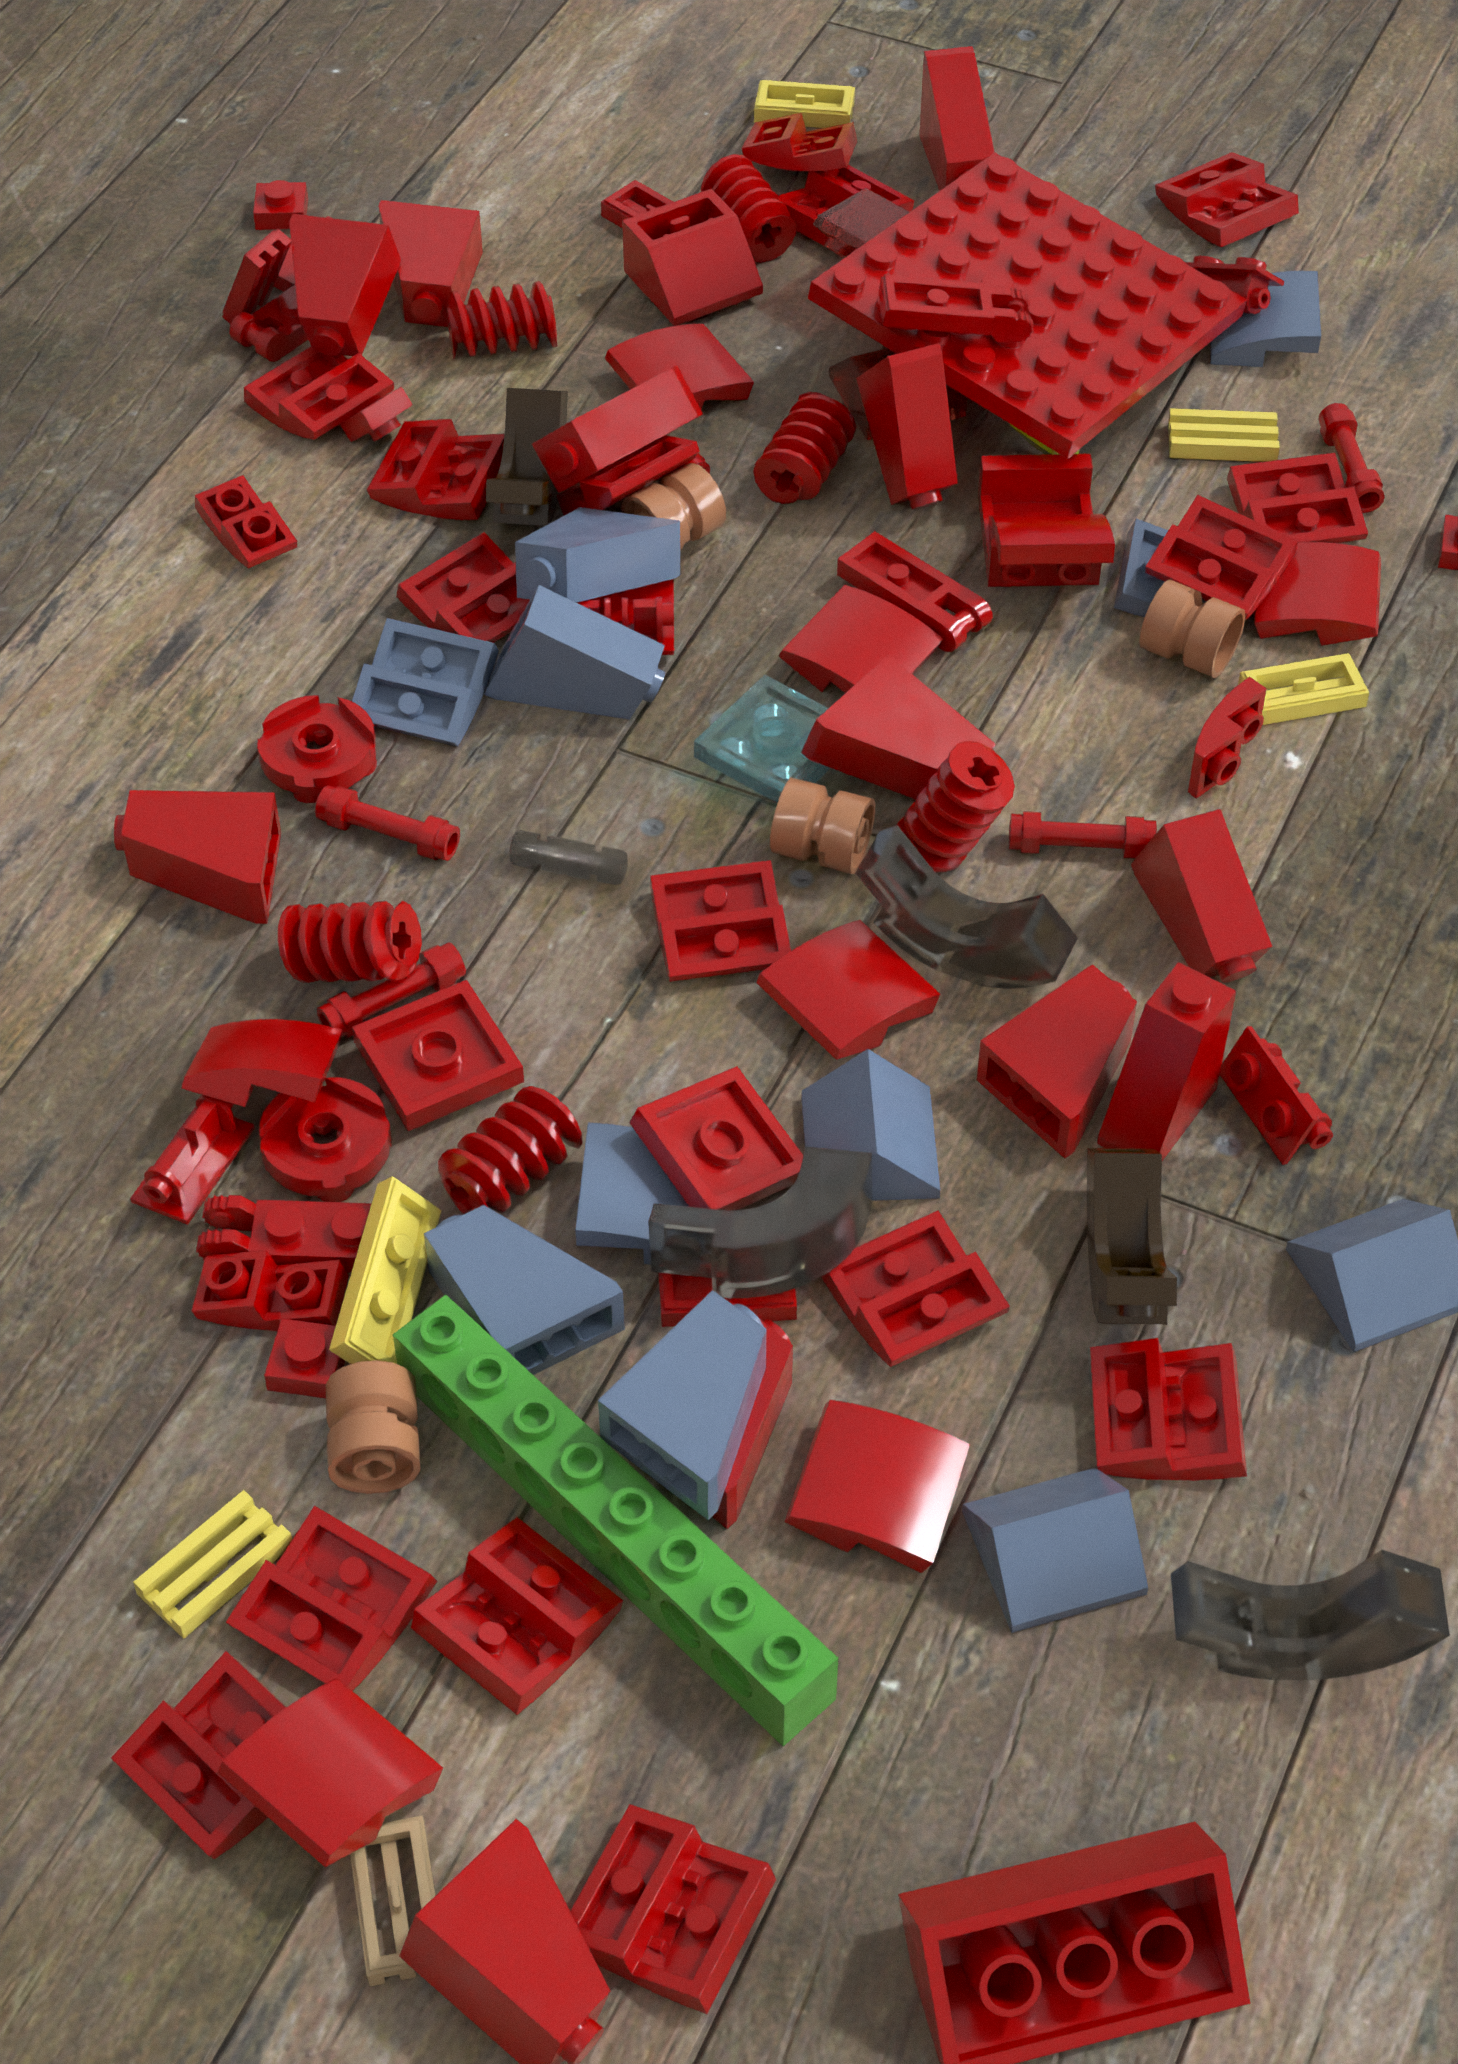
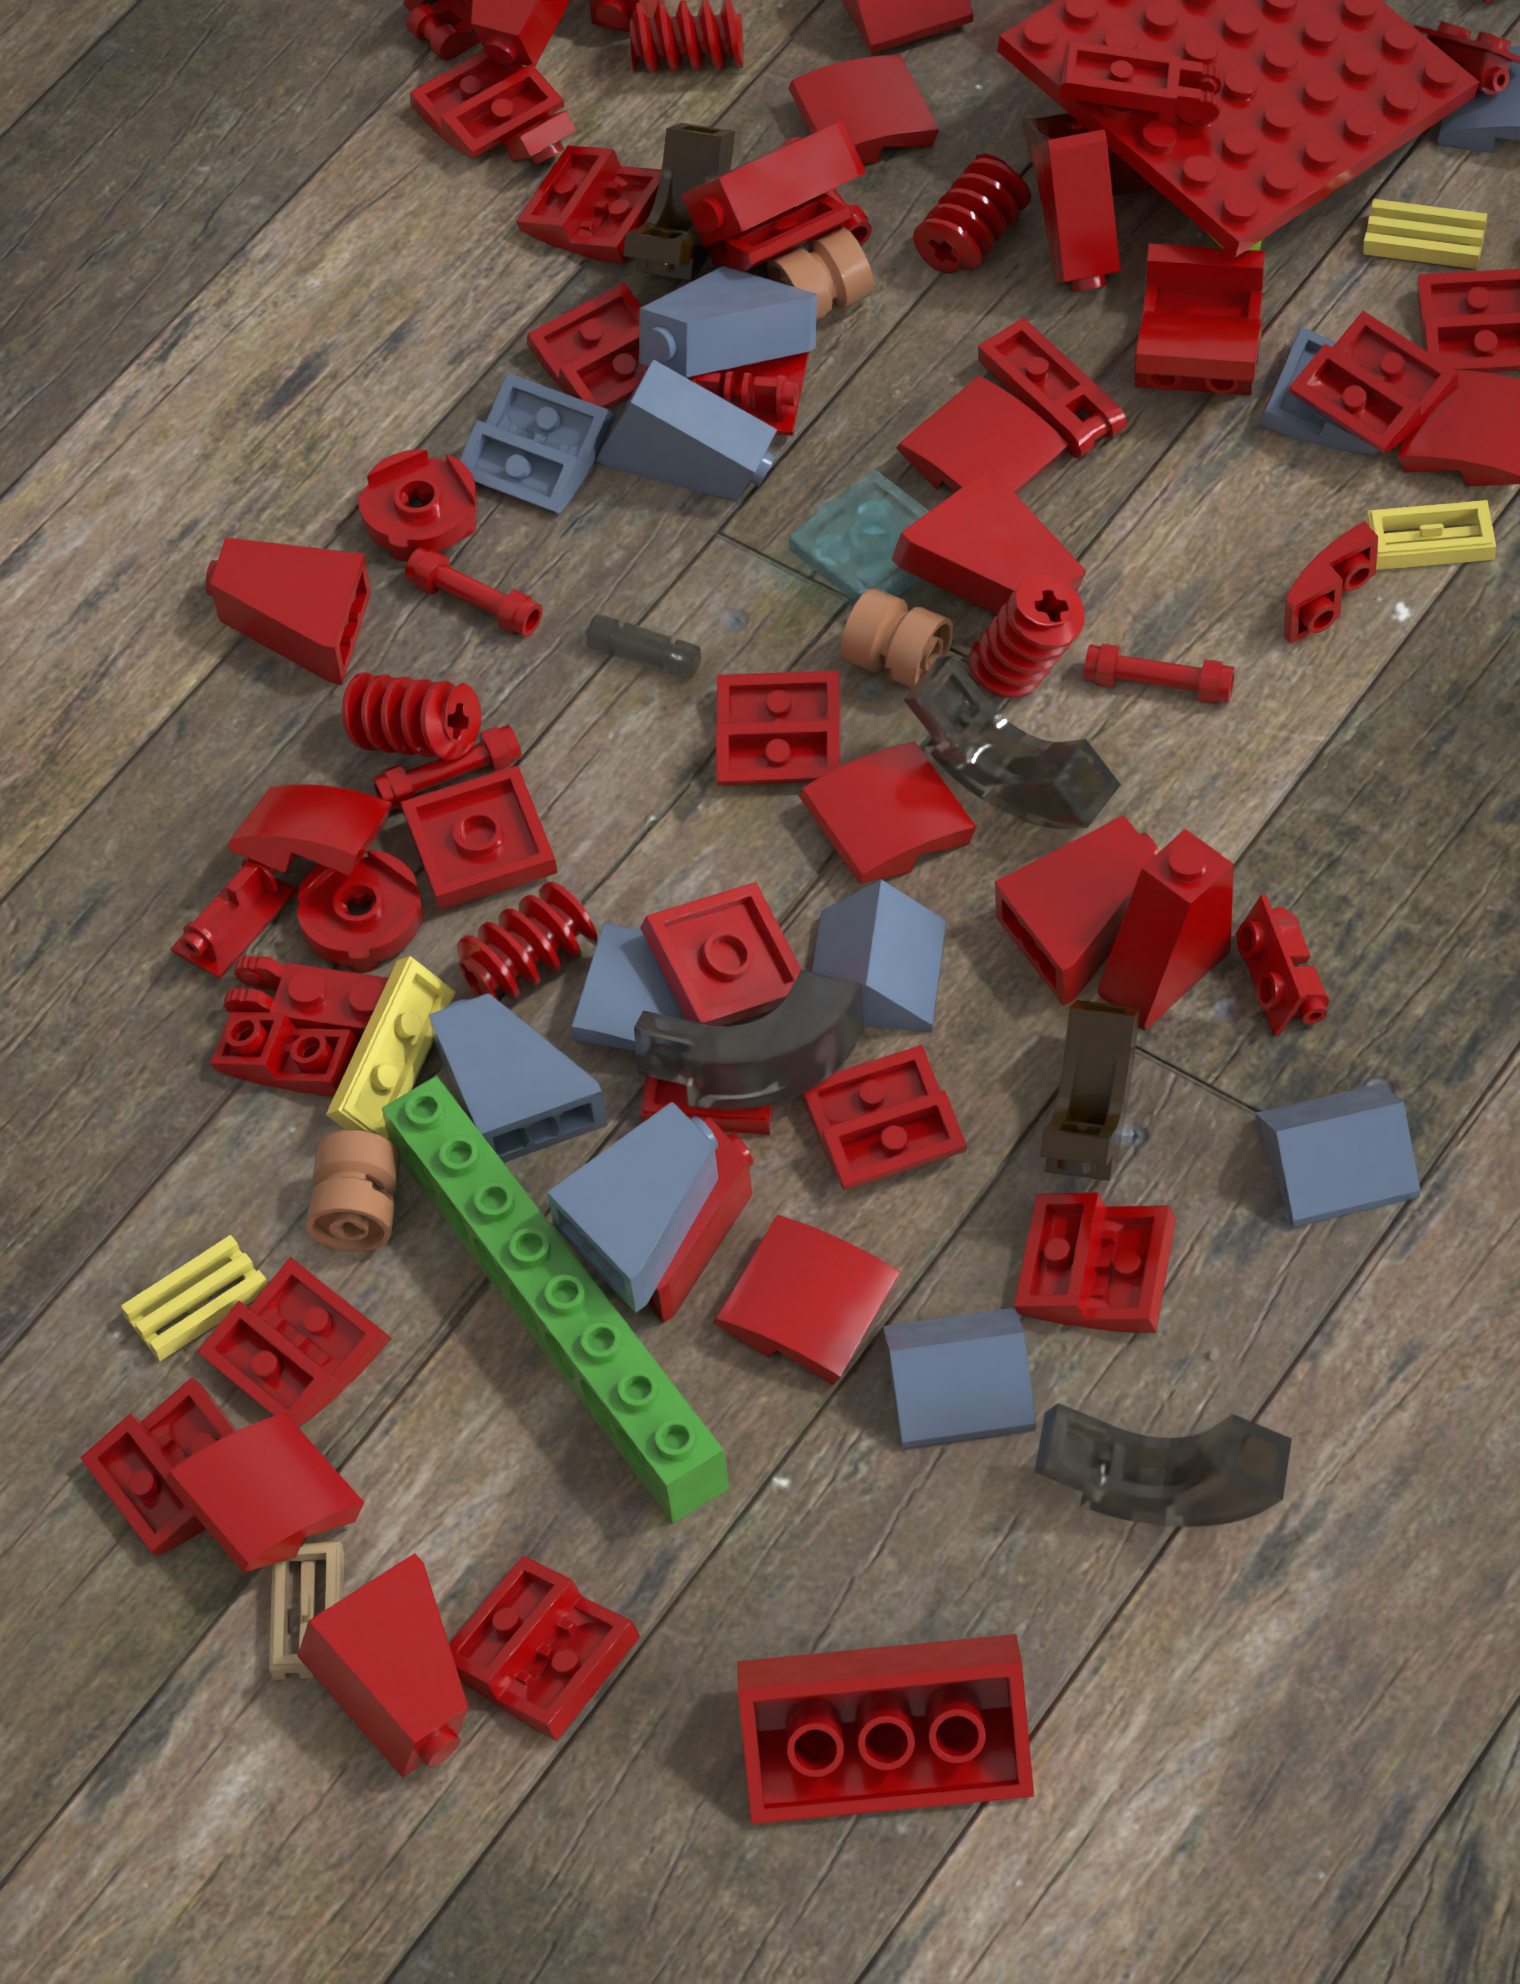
camera: 15 degrees right, 5 degrees up
(243, 523) = (387, 247): red slope -> none
(302, 1359) = (302, 1118): red plate -> none
(516, 1615) = (456, 1377): red slope -> none
(1198, 630) = (1332, 462): nougat wheel -> none
(1203, 896) = (1257, 755): red slope -> none

